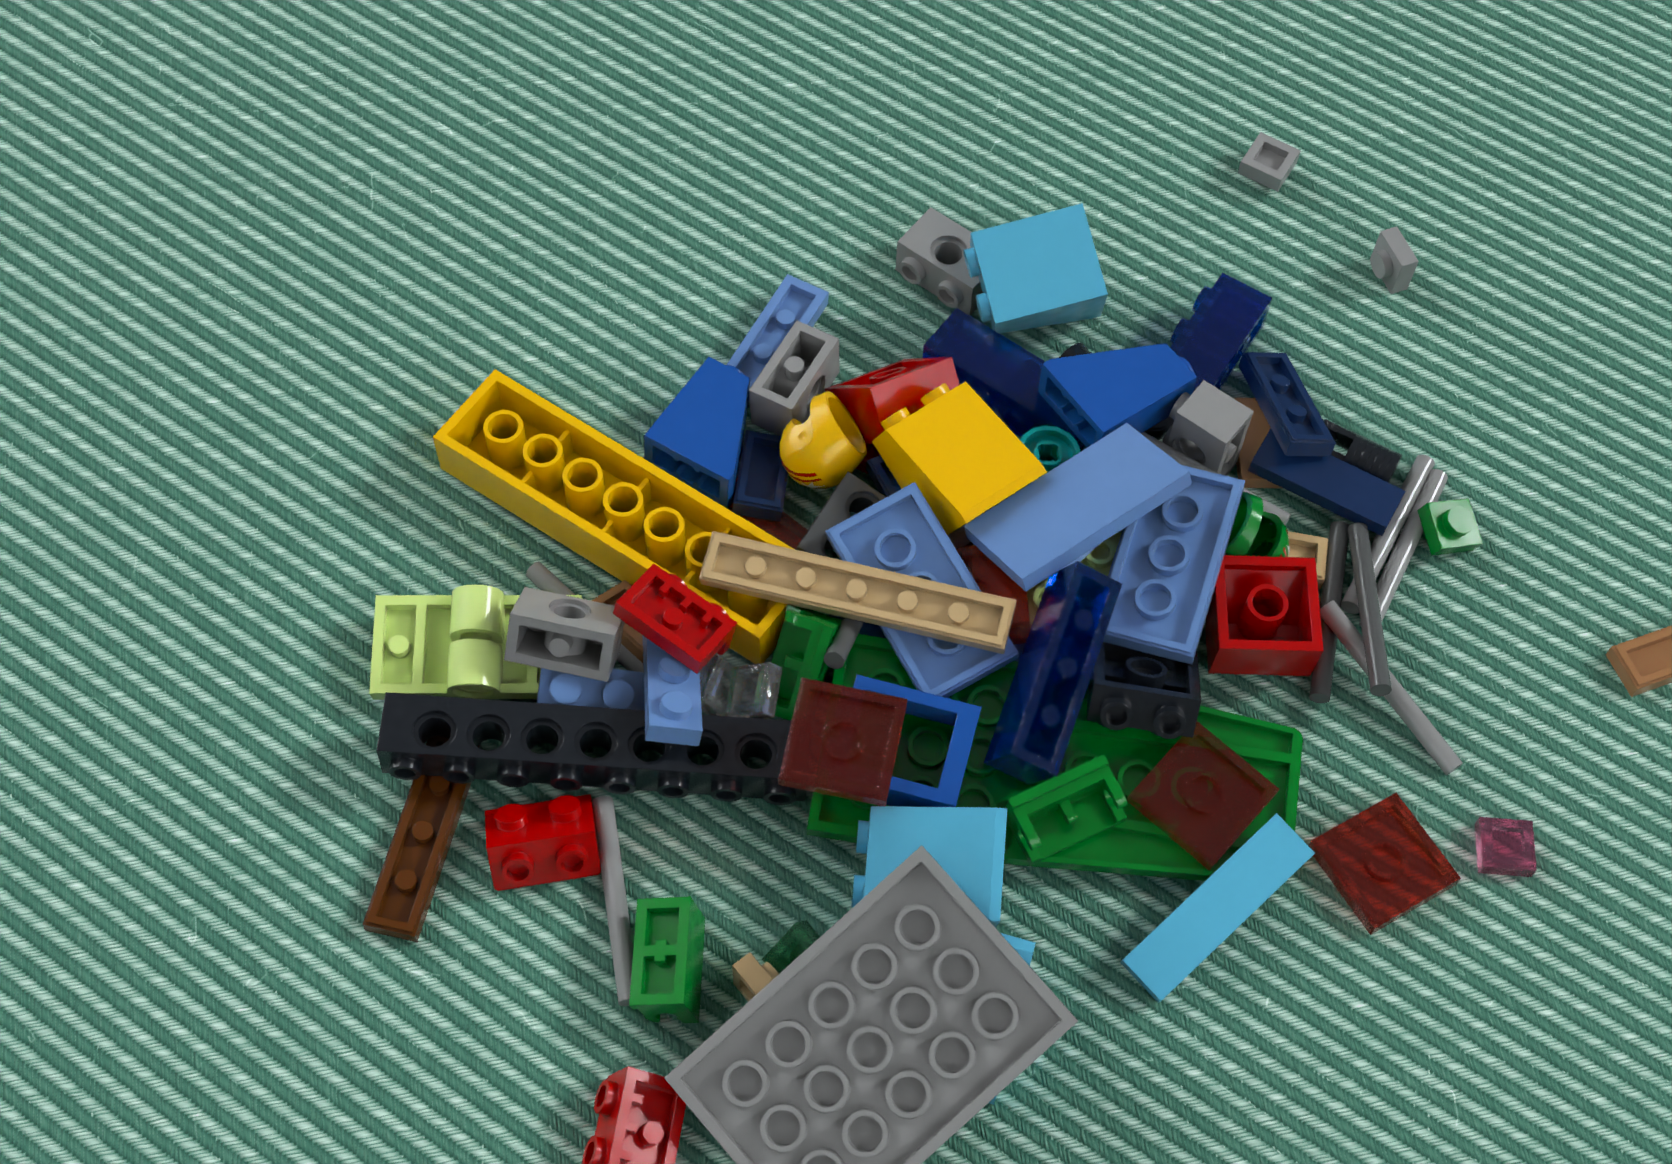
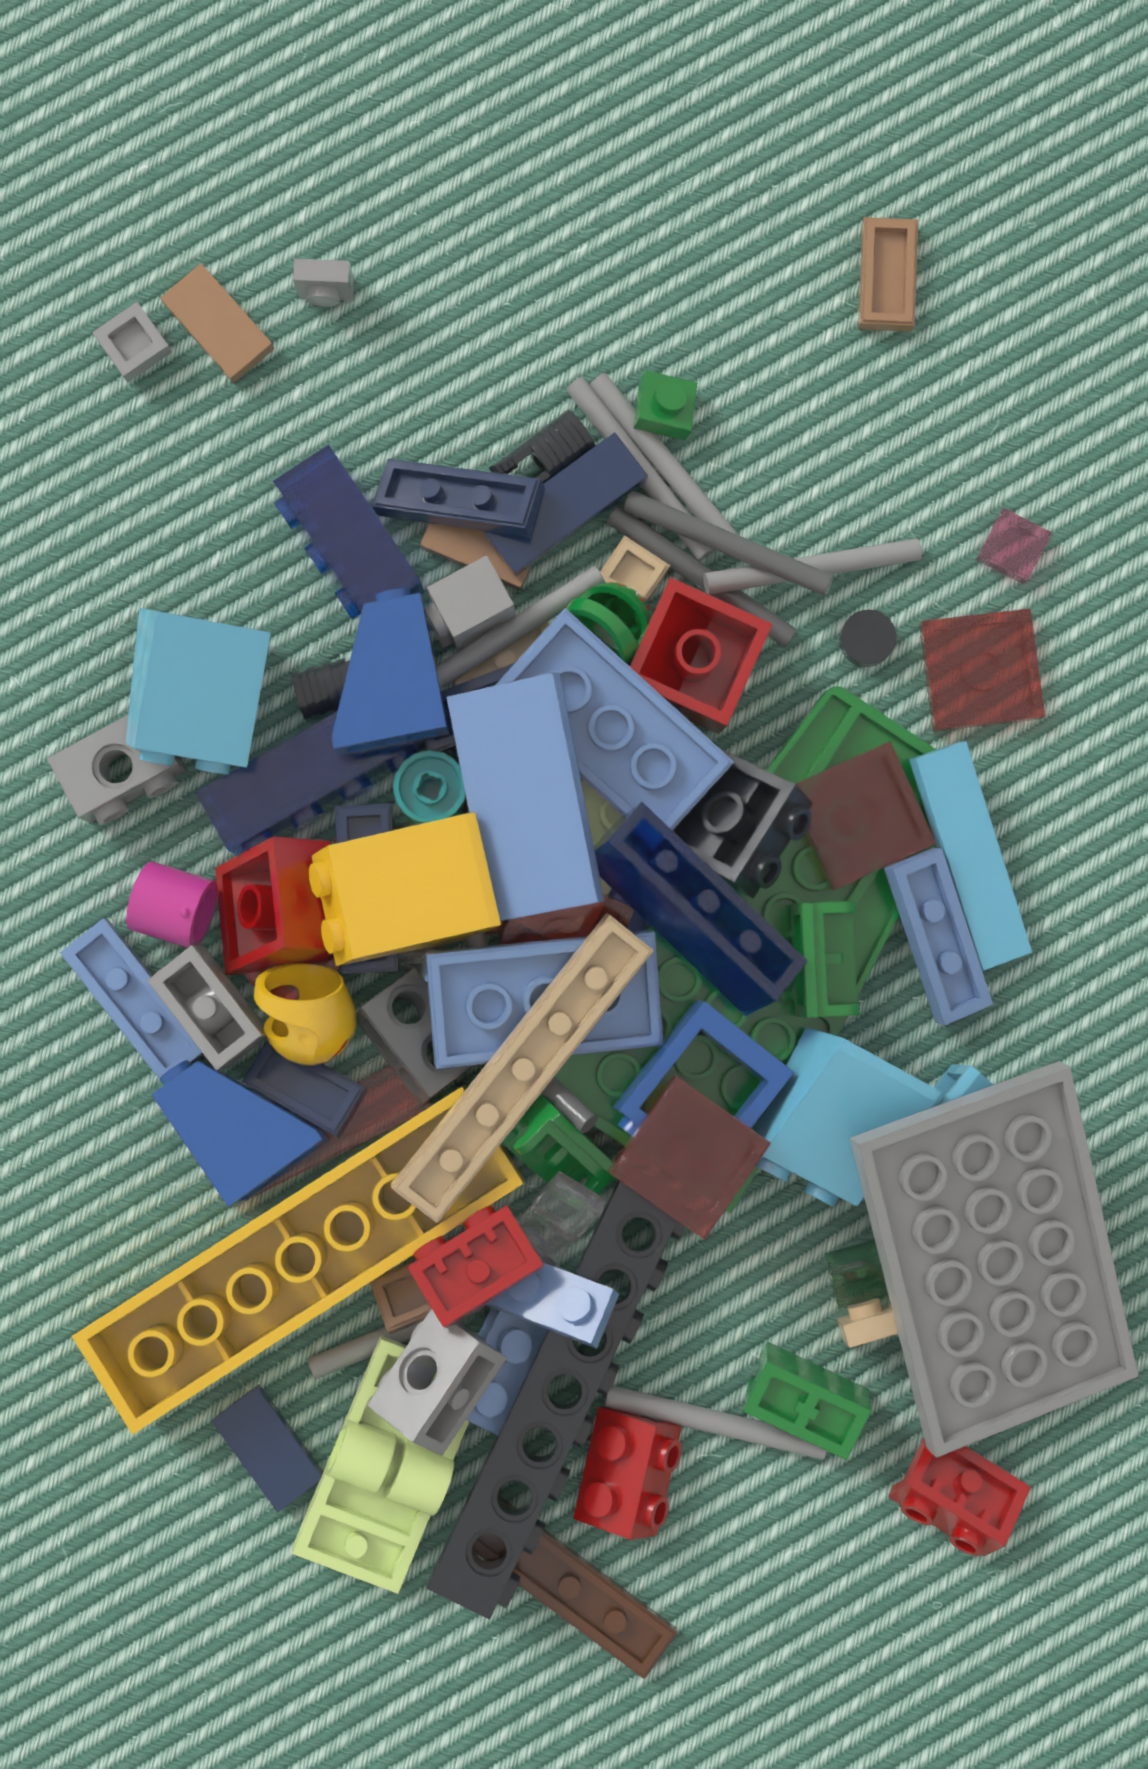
camera: 65 degrees left, 25 degrees up
(455, 556) = (268, 1448): none -> dark blue tile
(863, 328) = (172, 905): none -> dark pink piece
(1133, 906) = (938, 936): none -> medium blue plate
(1316, 211) = (217, 323): none -> medium nougat tile
(1355, 757) = (867, 638): none -> black tile

